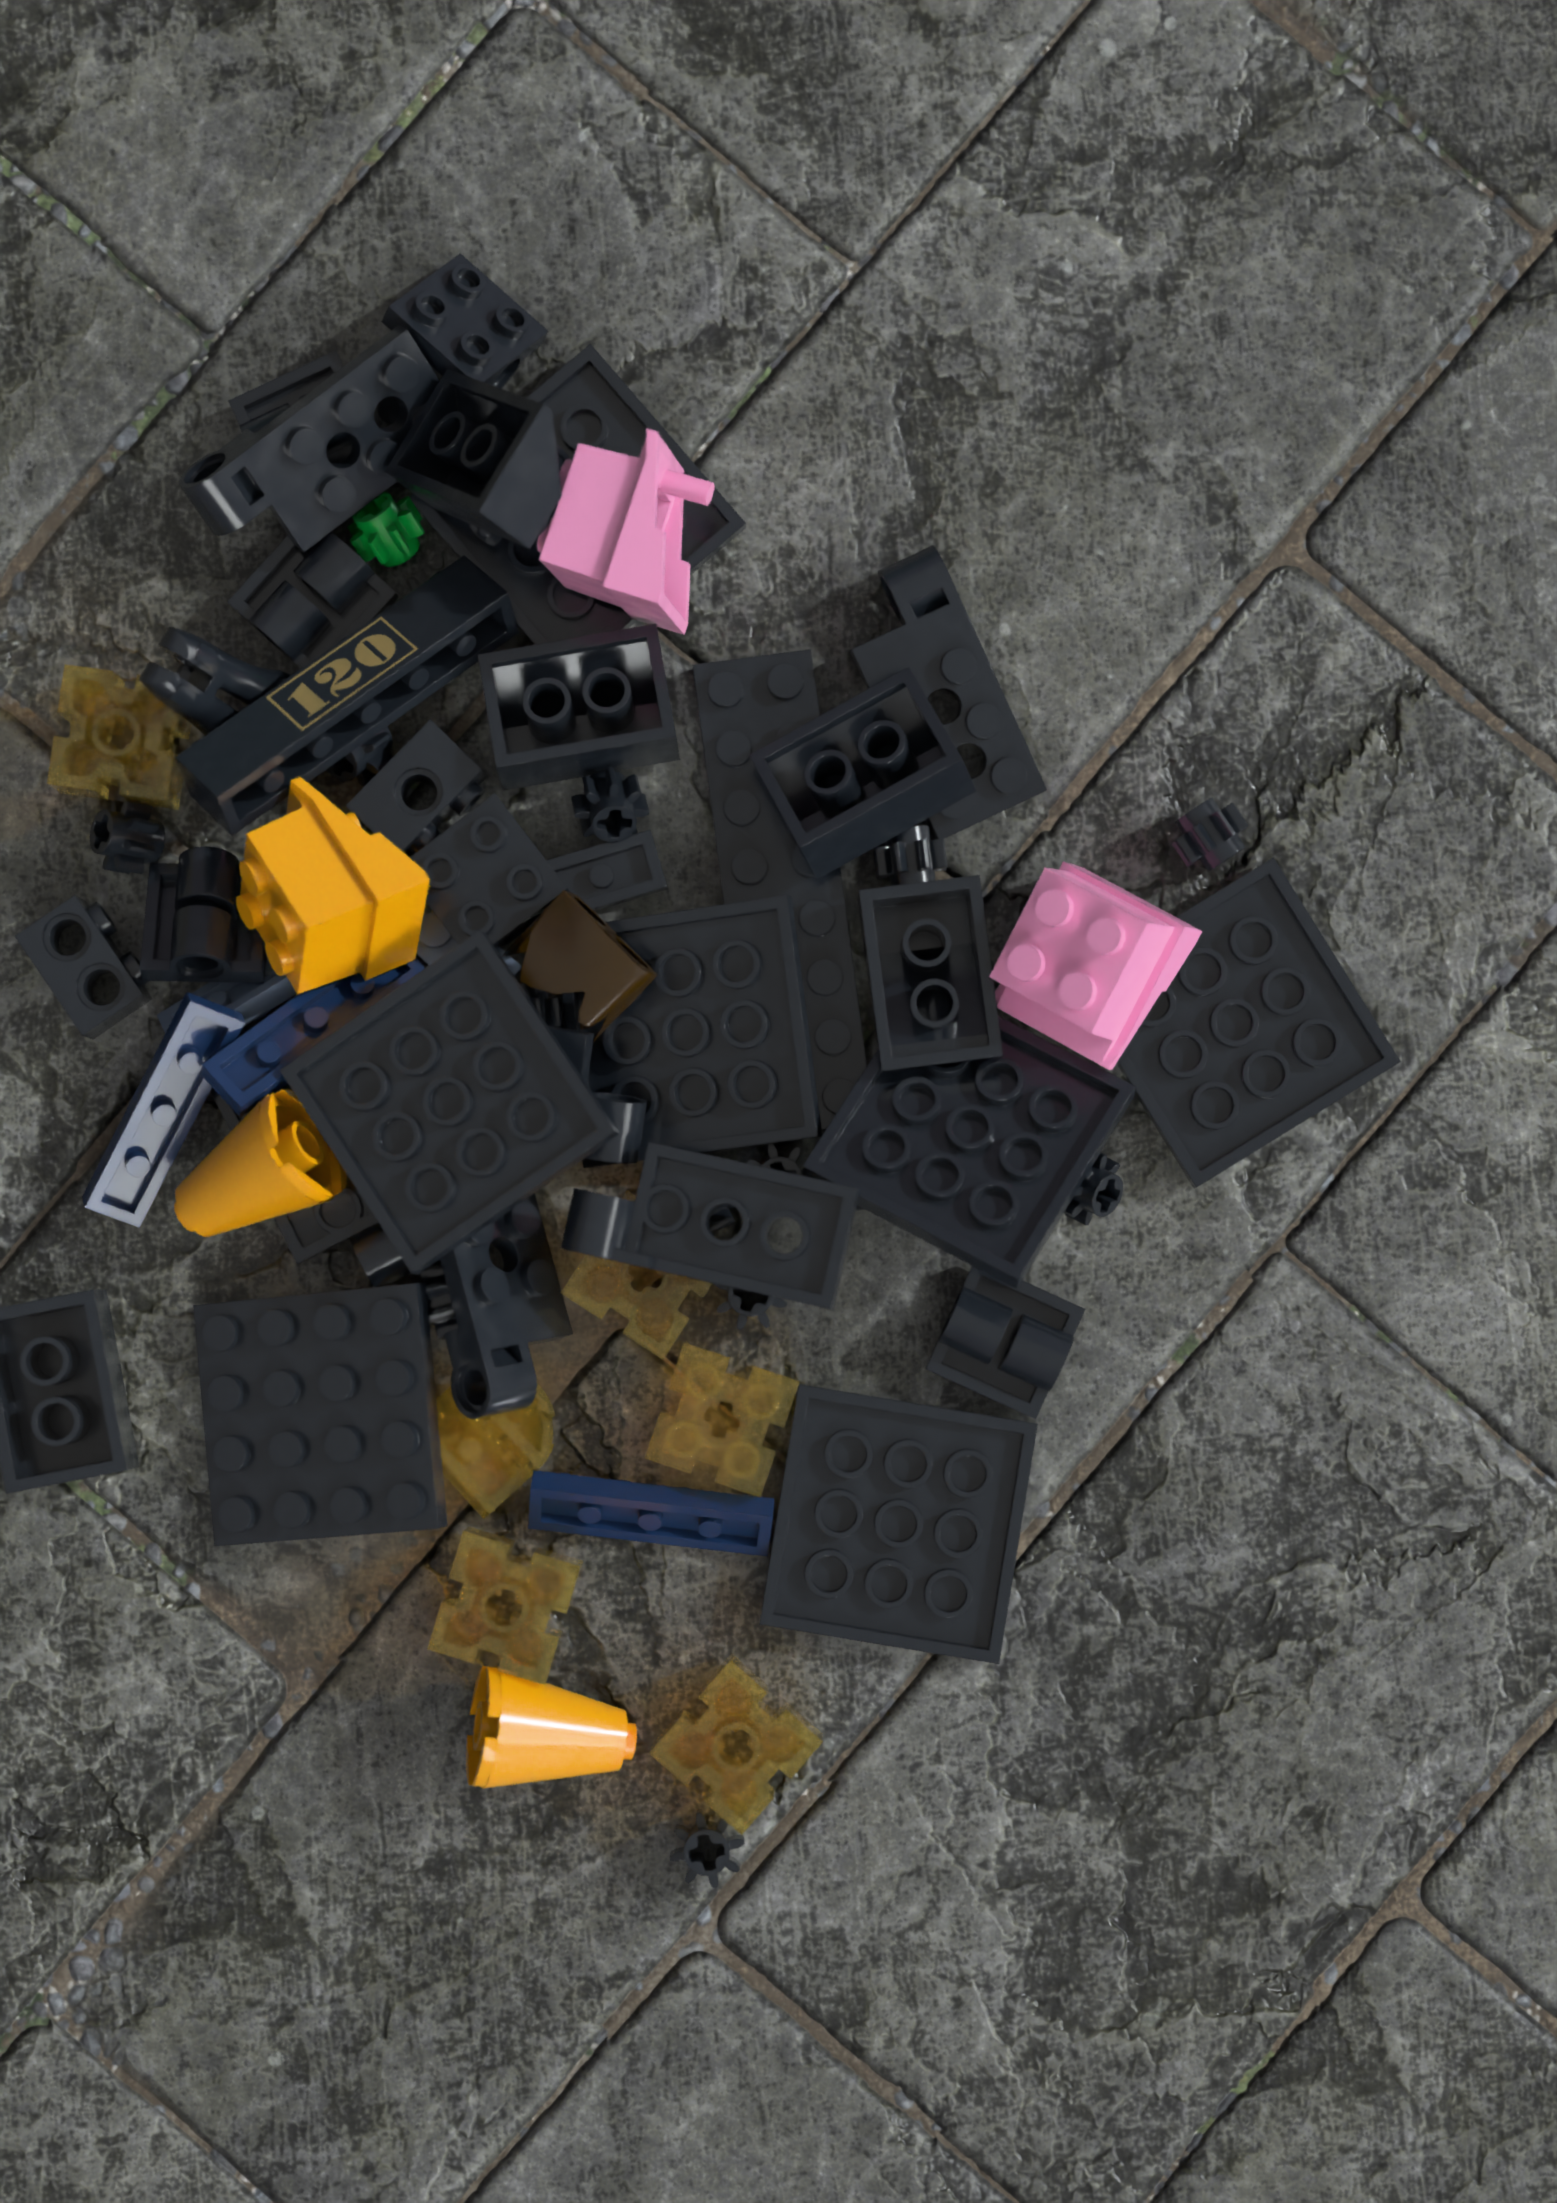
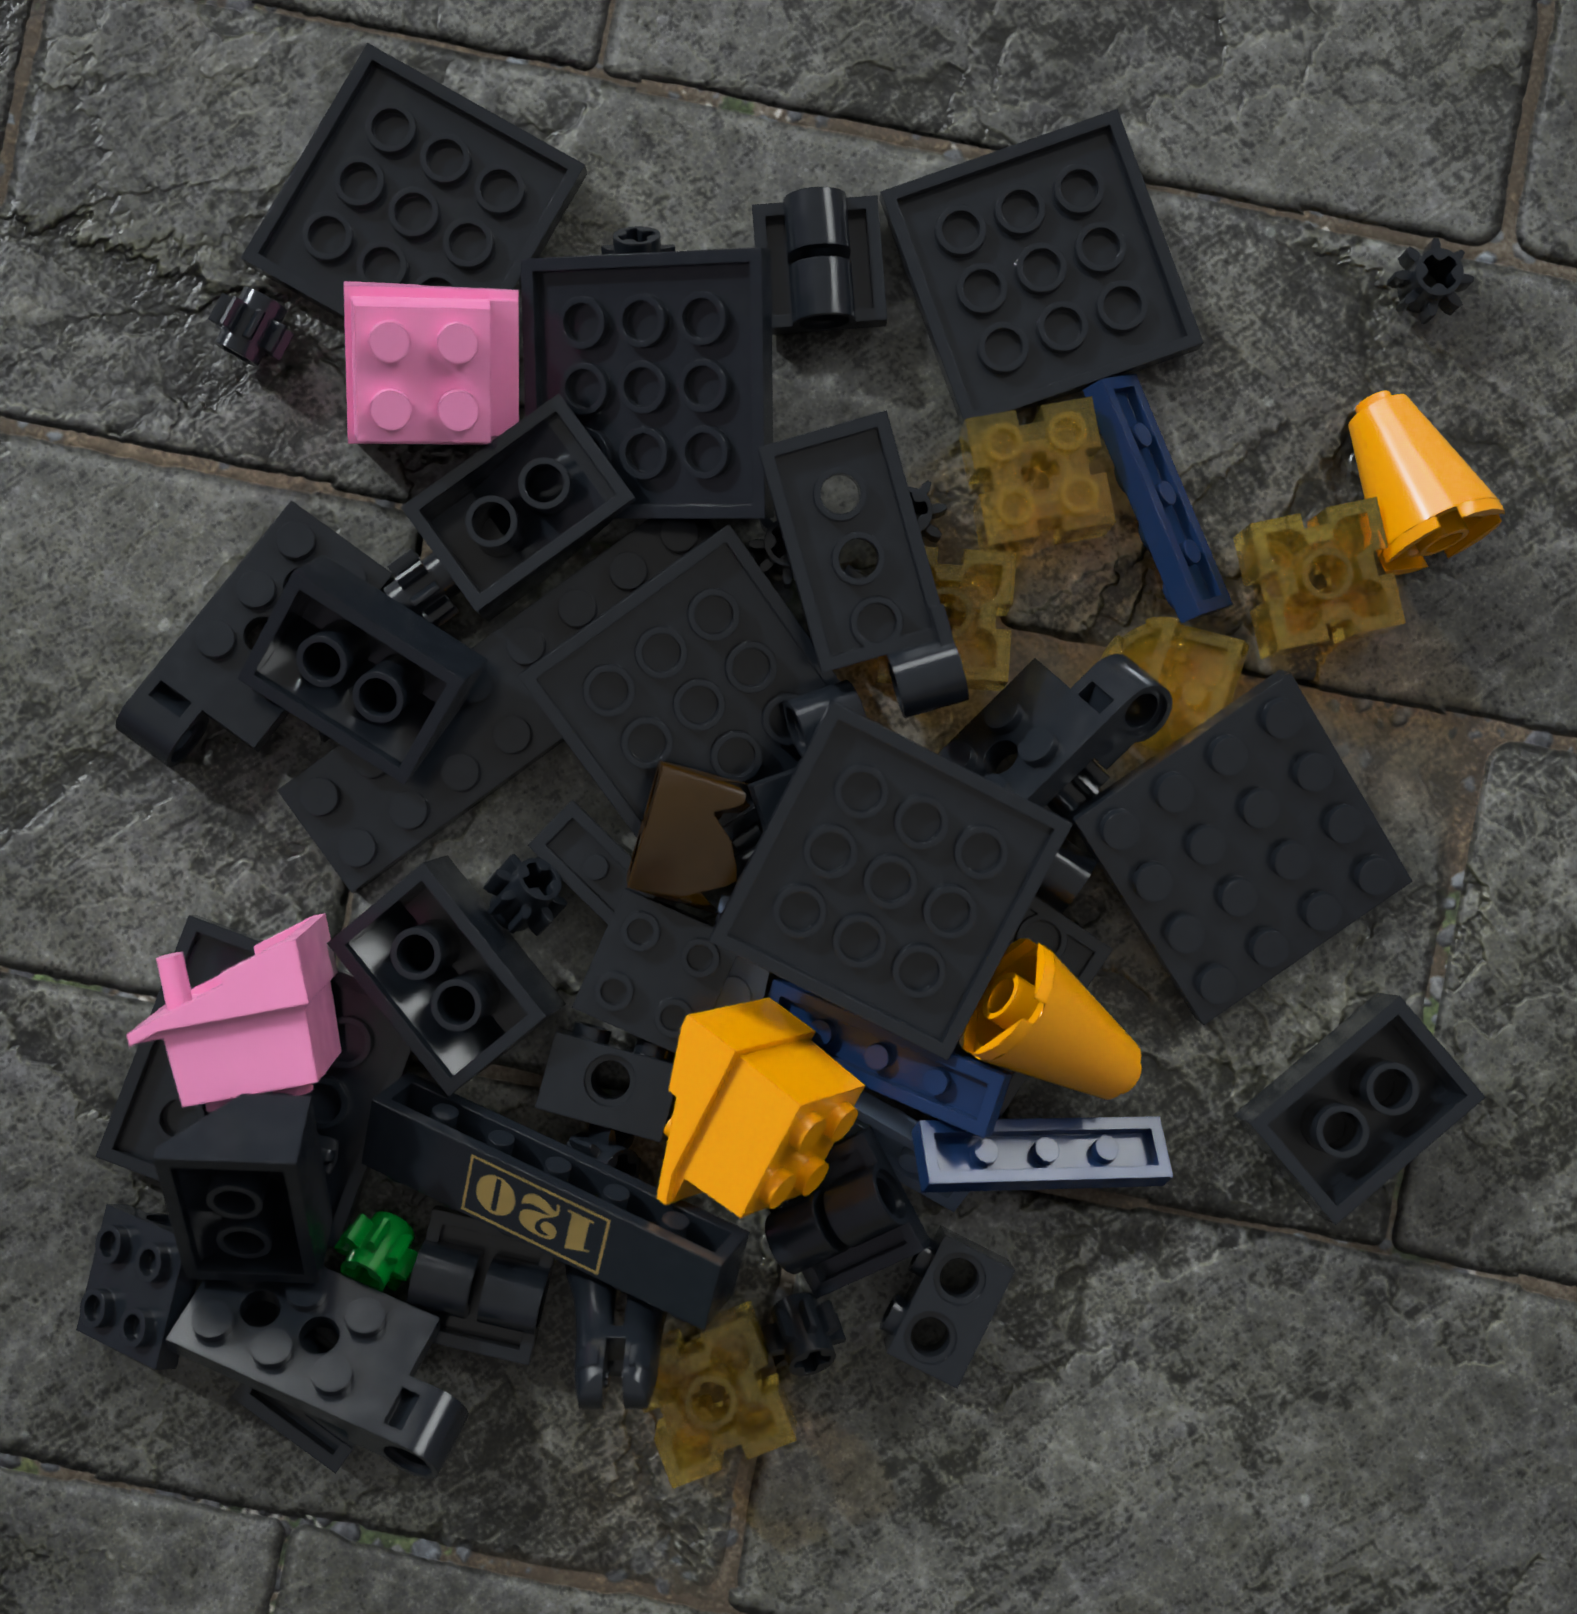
camera: 115 degrees left, 0 degrees up
(736, 1782) = (1357, 285): clear yellow brick -> none

